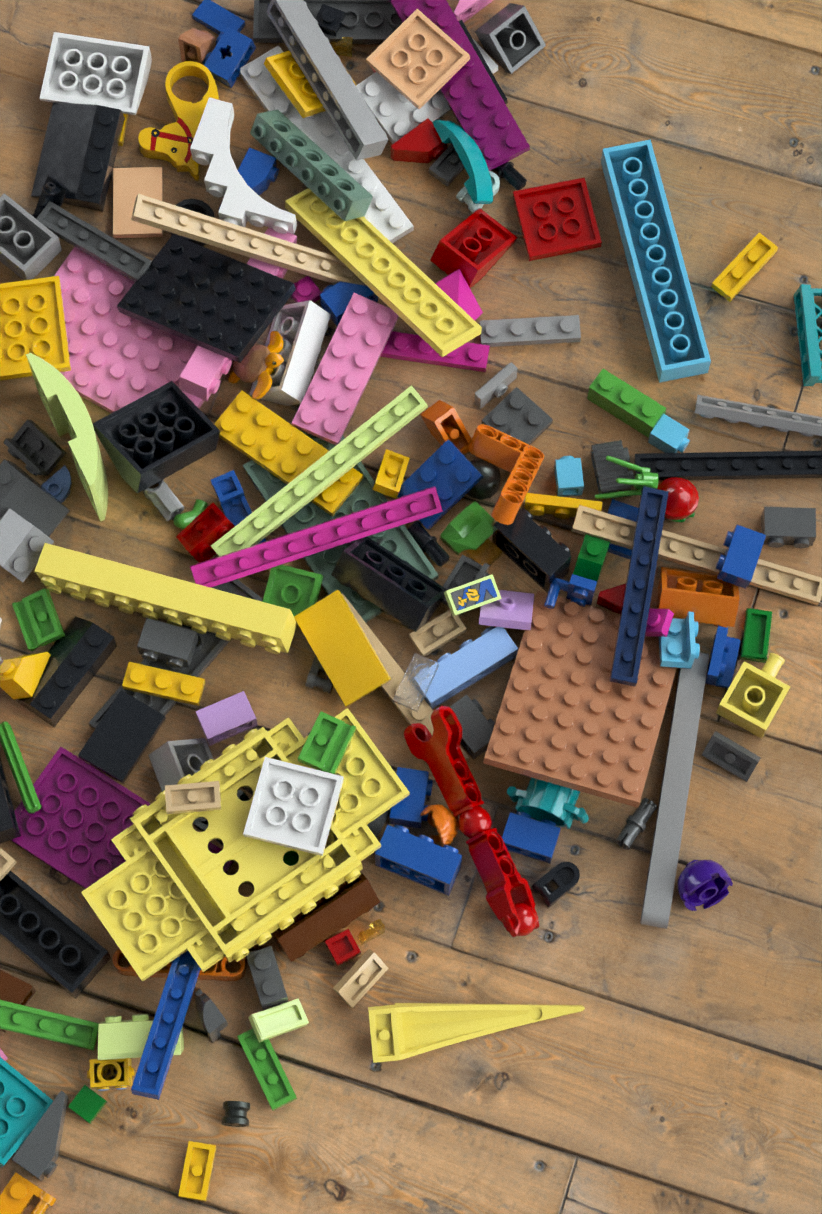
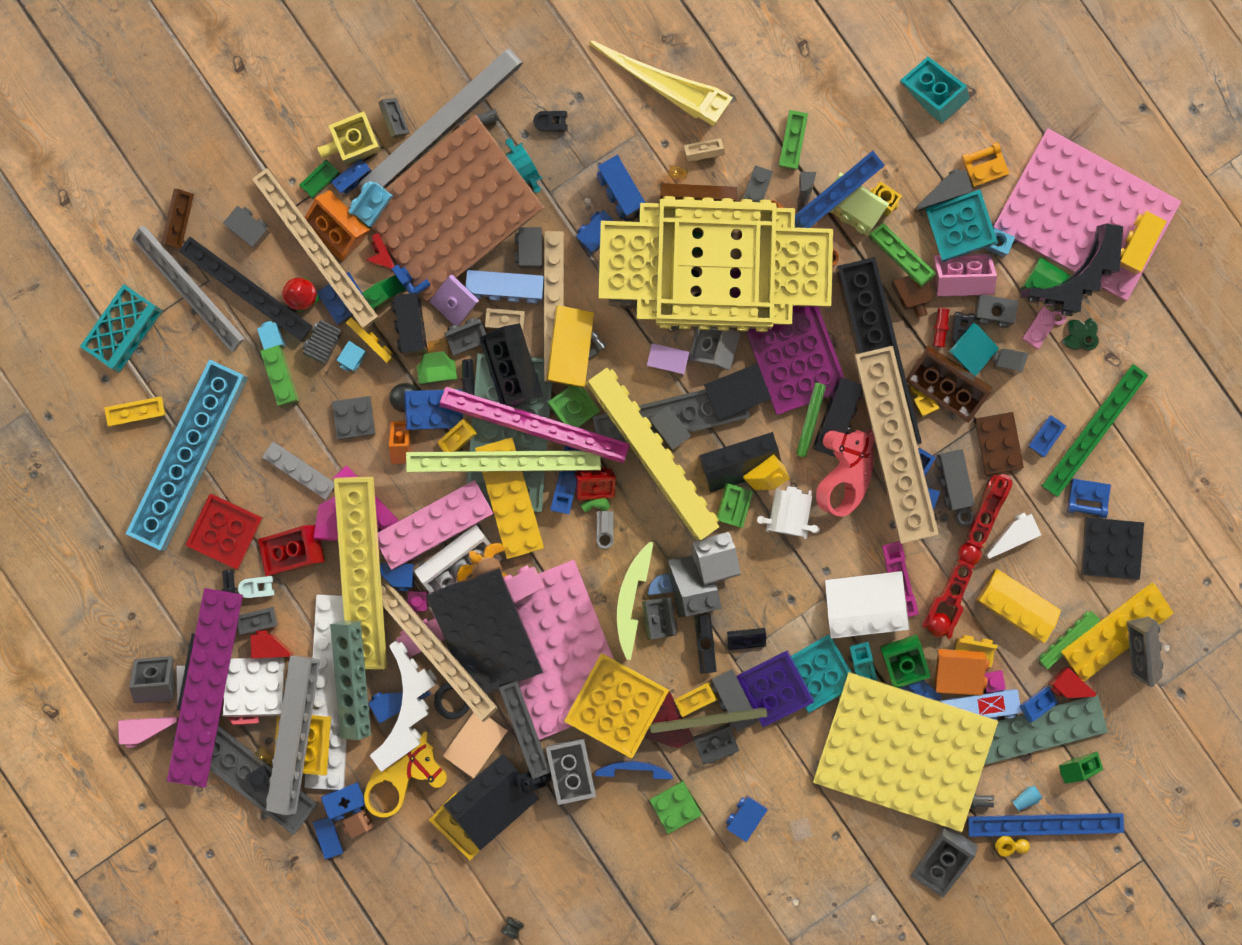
camera: 145 degrees left, 15 degrees up
(87, 1104) = (909, 195): green tile -> none
(96, 72) = (438, 850): white slope -> none
(156, 436) = (582, 564): black slope -> none
(163, 683) = (690, 406): yellow plate -> none
(192, 797) = (729, 306): tan plate -> none
(197, 1171) = (873, 112): yellow plate -> none
(236, 1113) = (829, 126): pearl dark grey wheel -> none
(278, 1020) = (768, 159): yellowish green tile -> none
(293, 806) = (675, 257): white plate -> none
(326, 743) = (628, 281): bright green plate -> none
(343, 947) = (700, 175): red plate -> none
(416, 682) = (543, 291): clear plate -> none
(418, 59) = (228, 697): light nougat plate -> none
(444, 822) = (589, 199): orange hair -> none
(472, 595) = (469, 319): tile -> none
(479, 184) = (246, 609): teal slope -> none
(496, 386) = (349, 447): light grey plate -> none
(506, 890) = (584, 134): red piece -> none
(513, 456) = (372, 381): orange beam -> none
(531, 836) = (546, 157): blue brick -> none
(639, 586) = (367, 249): dark blue plate -> none
(645, 479) = (311, 315): bright green plant -> none
(658, 622) = (374, 222): dark pink plate -> none
(703, 883) = (469, 57): dark purple cylinder -> none
(740, 556) = (292, 224): blue brick -> none

